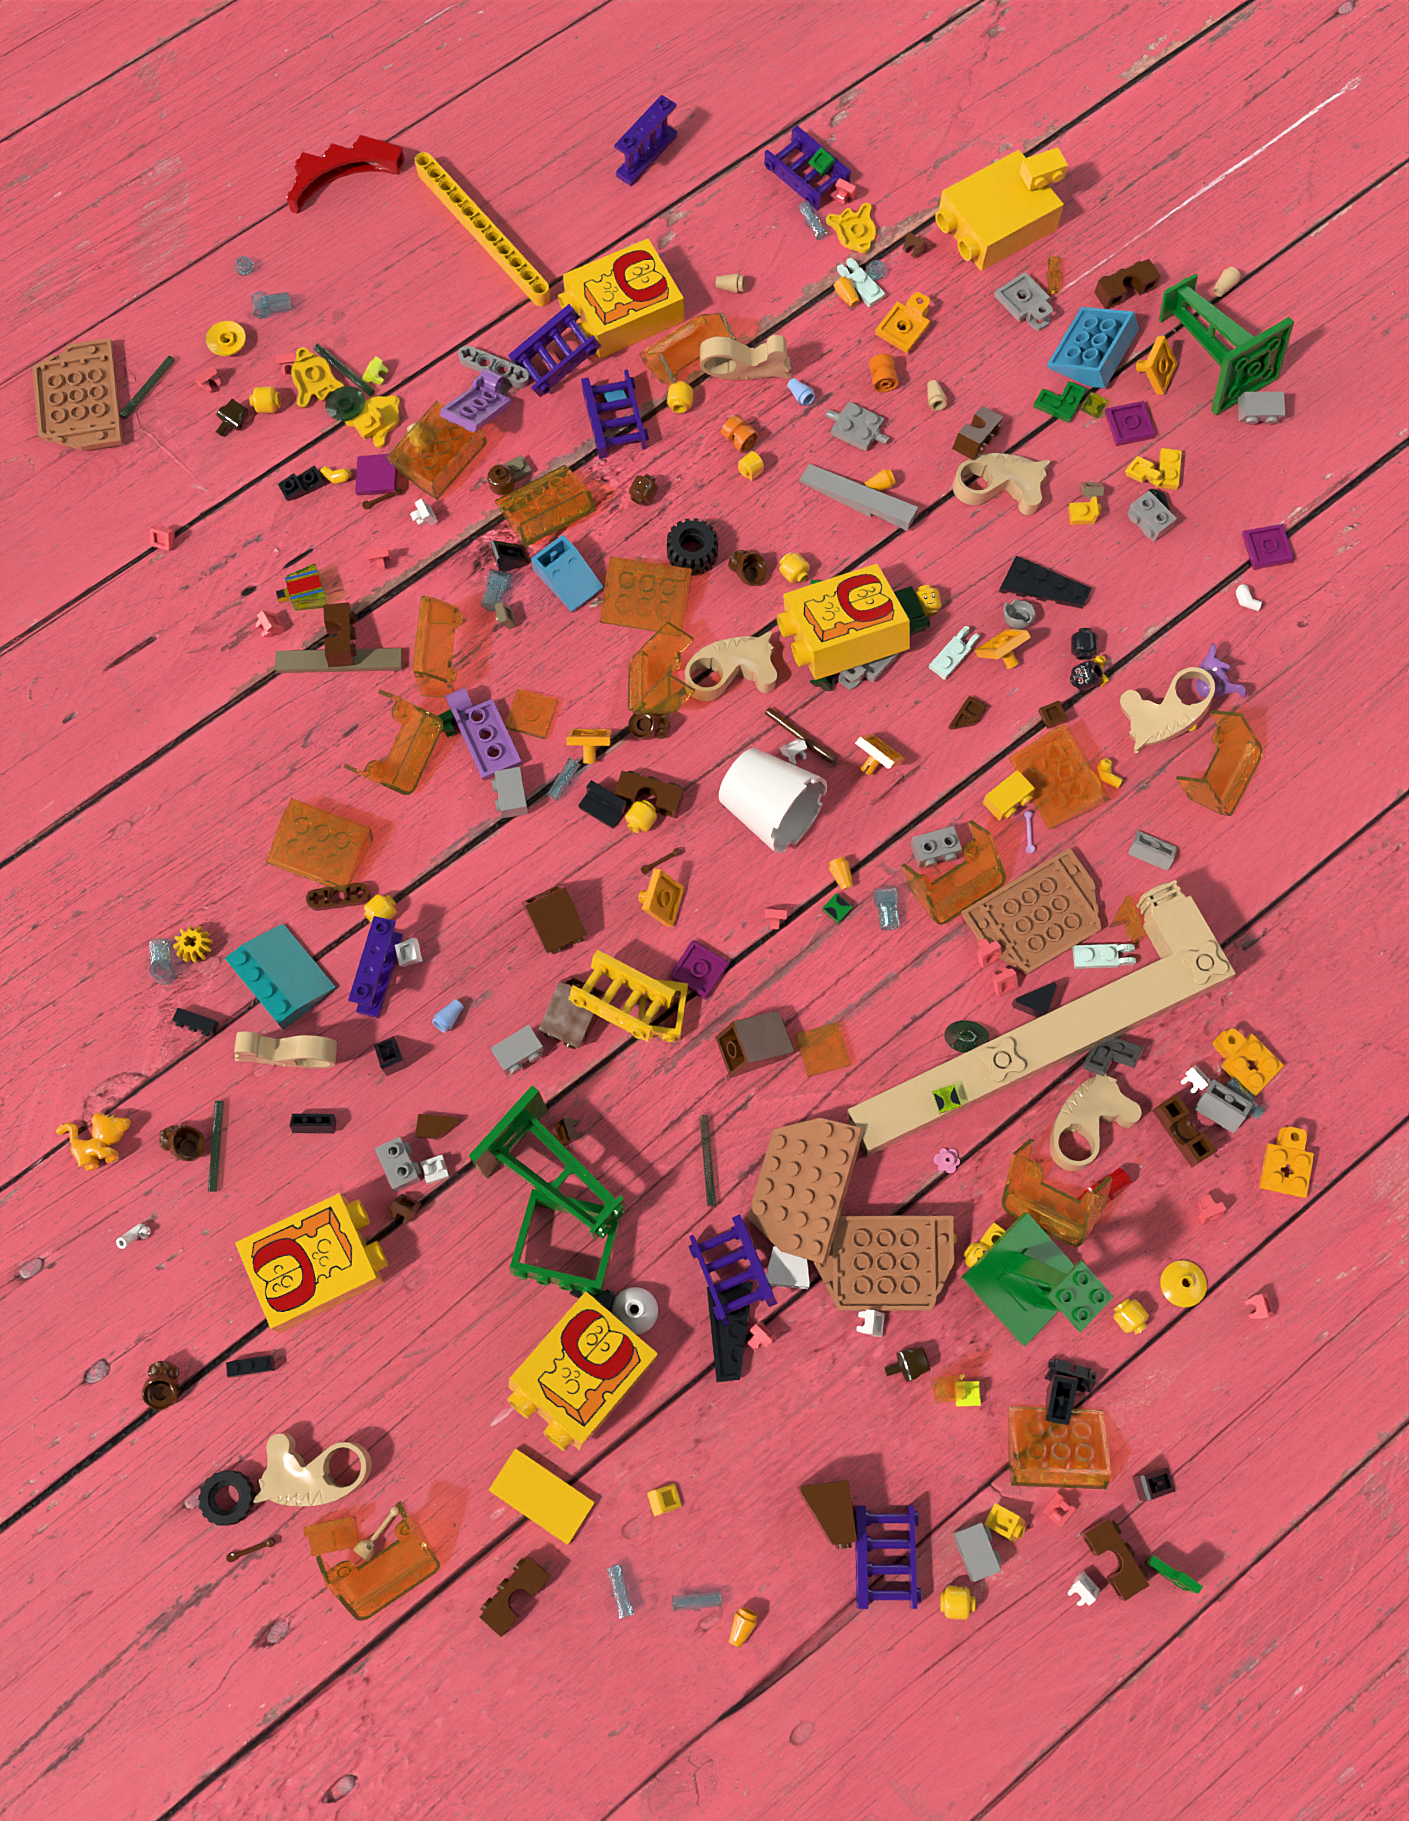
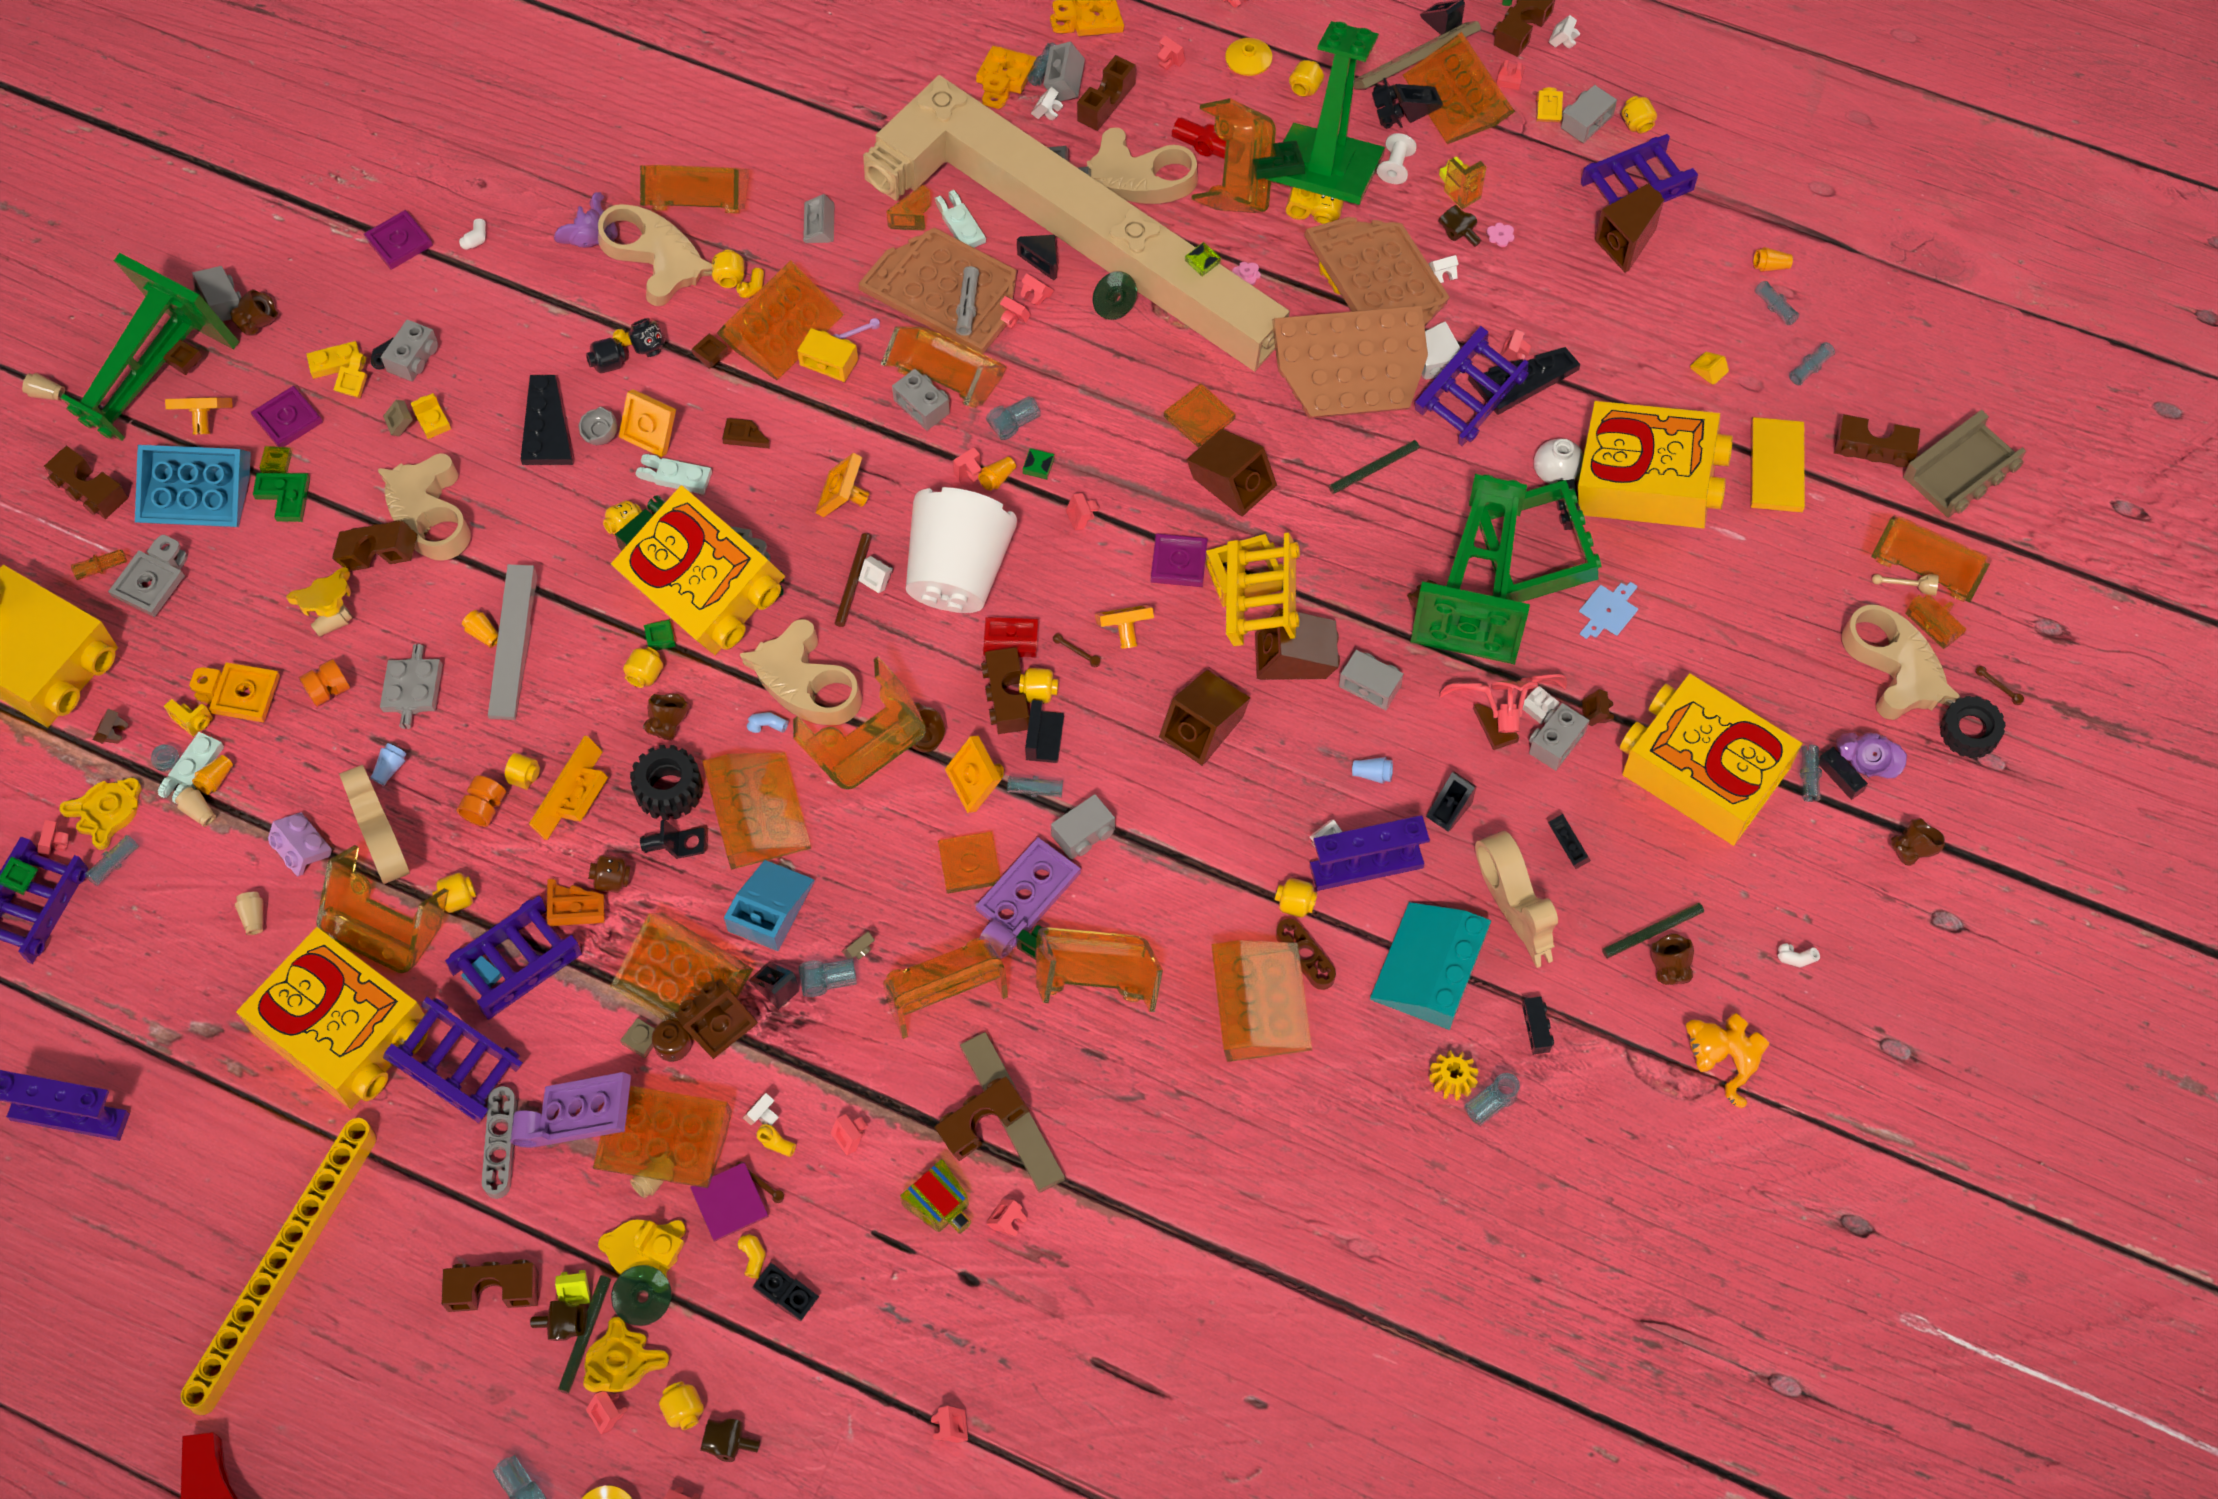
camera: 115 degrees left, 10 degrees down
(249, 1391) = (1859, 751): none -> medium lavender piece
(263, 1340) = (1811, 773): none -> clear light blue pin
(355, 358) = (562, 1321): none -> dark brown piece
(396, 342) = (464, 1284): none -> reddish brown arch
(405, 510) = (772, 1140): none -> yellow arm
(428, 1128) = (1509, 714): none -> coral plant
(453, 1661) = (1963, 466): none -> dark tan panel
(489, 1283) = (1620, 612): none -> light blue piece
(497, 504) = (715, 1018): none -> reddish brown plate
(633, 461) = (573, 905): none -> orange wing
(647, 537) = (674, 841): none -> black bracket
(692, 818) = (1011, 633): none -> red plate
(713, 630) = (769, 719): none -> light blue arm
(719, 491) = (572, 790): none -> light orange bracket
(769, 324) = (297, 842): none -> lavender bracket
(827, 275) = (195, 806): none -> tan cone
(856, 854) = (967, 465): none -> coral tile
(891, 1392) = (1501, 234): none -> bright pink plant
(899, 287) = (189, 720): none -> yellow bracket
(955, 393) = (323, 595): none -> yellow tile
(1004, 1345) = (1400, 147): none -> white piece
(1009, 916) = (966, 308): none -> light grey pin
(1026, 1230) = (1285, 162): none -> dark green tile
(1116, 1433) = (1413, 56): none -> dark tan tile
(1129, 759) = (728, 268): none -> yellow head
(1210, 370) = (182, 357): none -> reddish brown tile
(1234, 427) = (253, 312): none -> reddish brown hair

